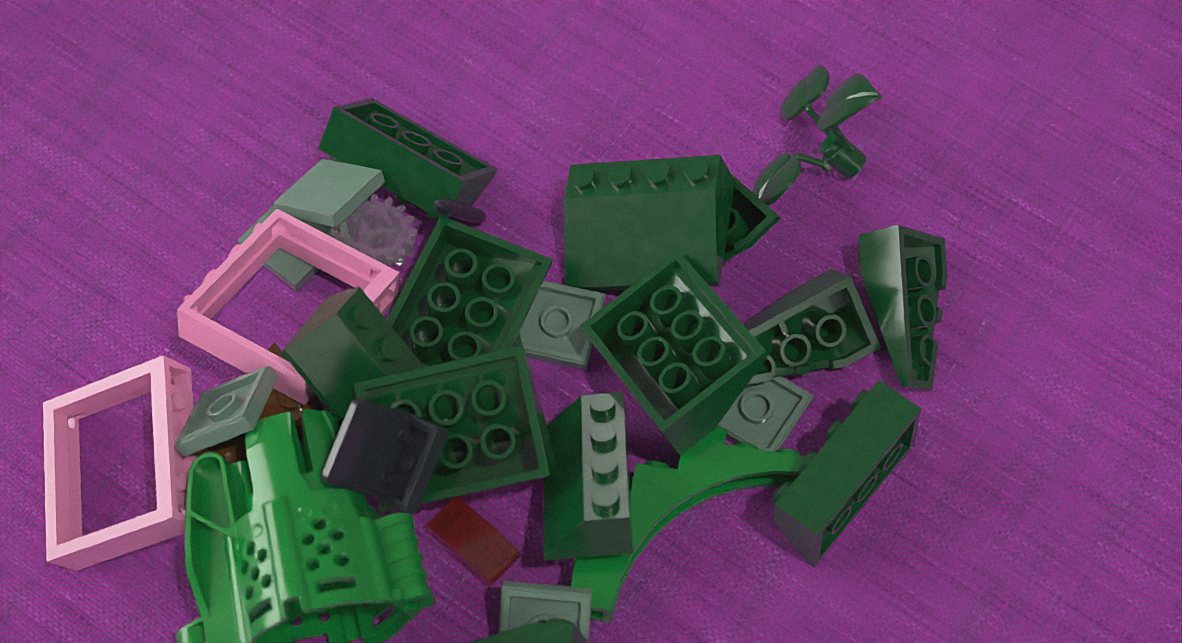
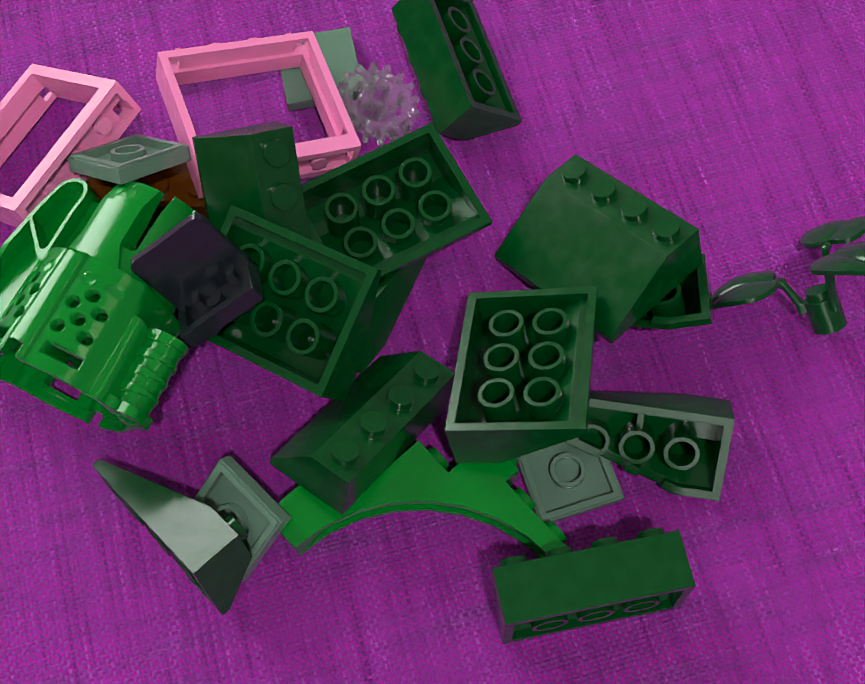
camera: 40 degrees right, 5 degrees up
(330, 192) = (367, 47): sand green tile -> none
(448, 207) = (441, 119): black piece -> none
(474, 540) = (247, 406): clear red slope -> none
(553, 325) = (459, 270): sand green tile -> none
(903, 280) = (784, 462): dark green wedge -> none

